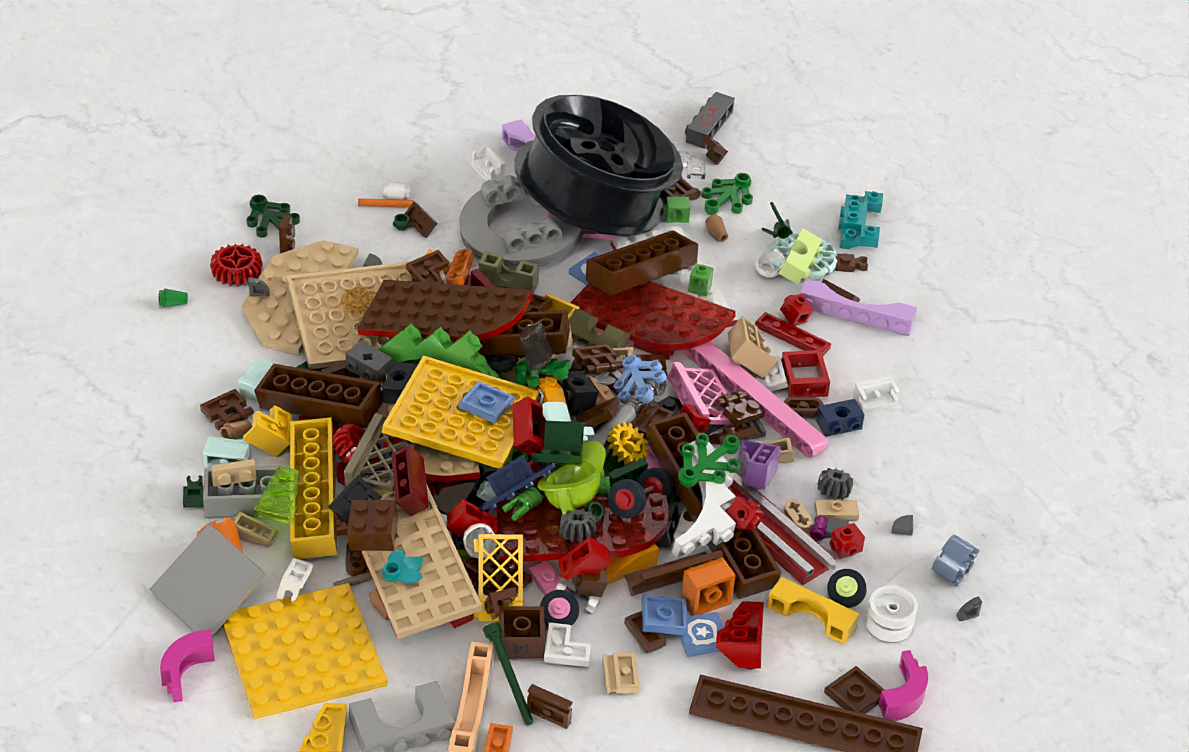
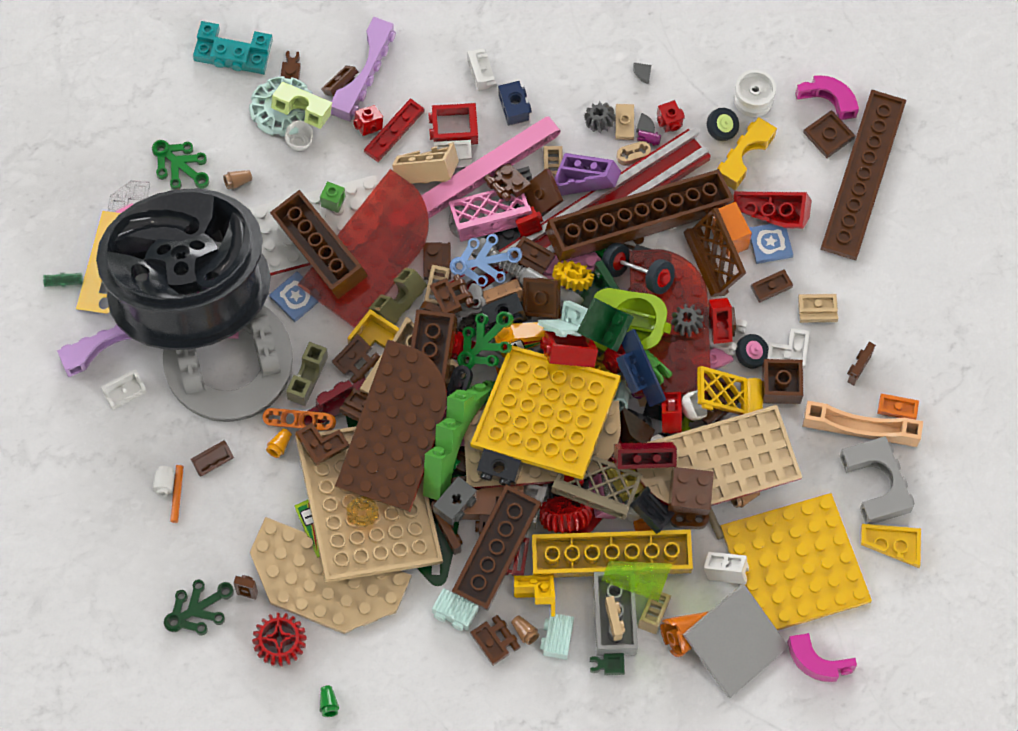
camera: 85 degrees left, 25 degrees up
(258, 287) = (331, 612): dark grey tile -> none
(372, 260) = (277, 505): dark grey tile -> none
(401, 222) = (212, 473): dark green plate -> none
(404, 568) = (733, 465): teal plate -> none
(486, 402) = (538, 387): medium blue tile -> none
(493, 633) = (800, 398): dark green piece -> none
(500, 598) = (757, 393): reddish brown bracket -> none
(536, 347) = (465, 340): clear smoke brick -> none
(597, 508) = (670, 305): dark green plate -> none
(664, 615) = (759, 267): medium blue tile -> none
(709, 119) = (59, 168): dark grey brick -> none
(713, 520) = (655, 206): white arch -> none
(715, 150) = (115, 167): reddish brown bracket -> none
(730, 446) = (623, 204): green plant -> none
(745, 513) = (672, 185): red brick -> none
(781, 228) = (250, 118): dark green plant -> none
(804, 405) = (496, 133): reddish brown plate -> none
(955, 559) = (694, 36): sand blue brick -> none
(970, 609) = (744, 43): dark grey tile -> none

